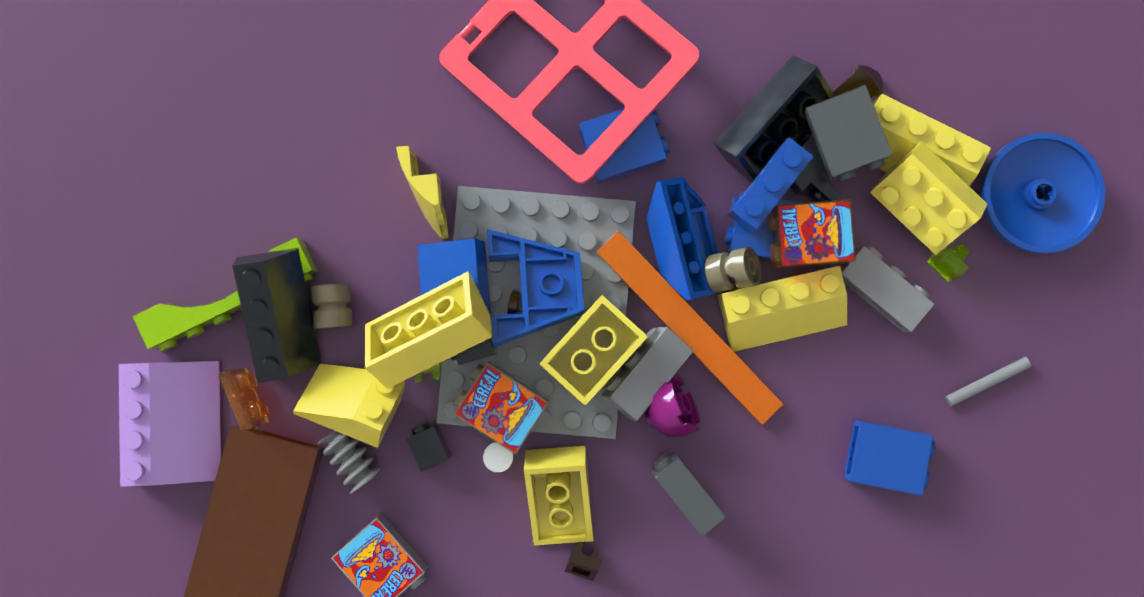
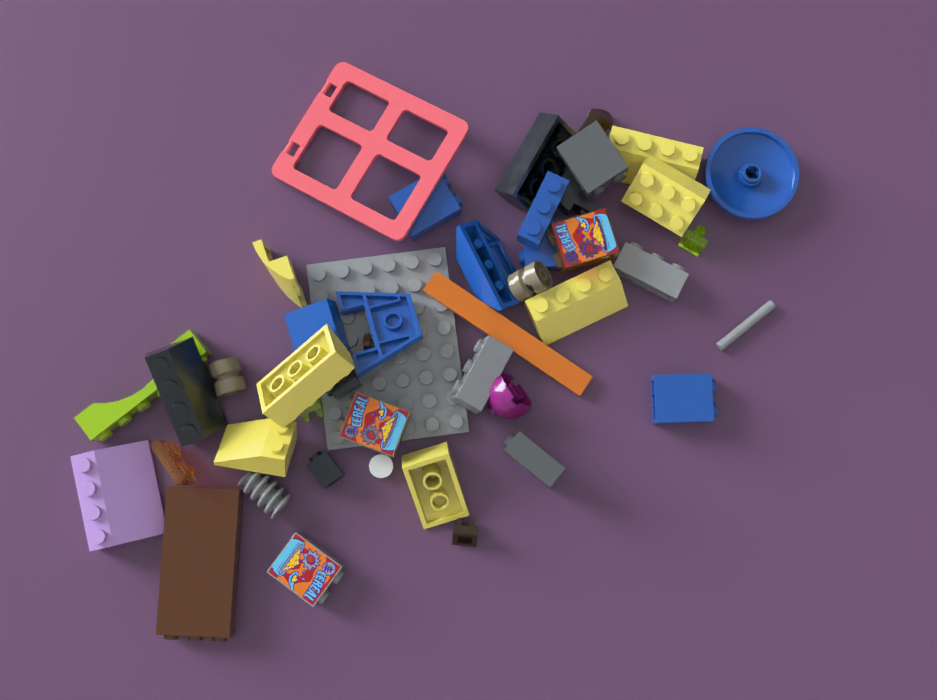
camera: 15 degrees left, 5 degrees down
(593, 350) = (436, 363): light yellow brick -> none

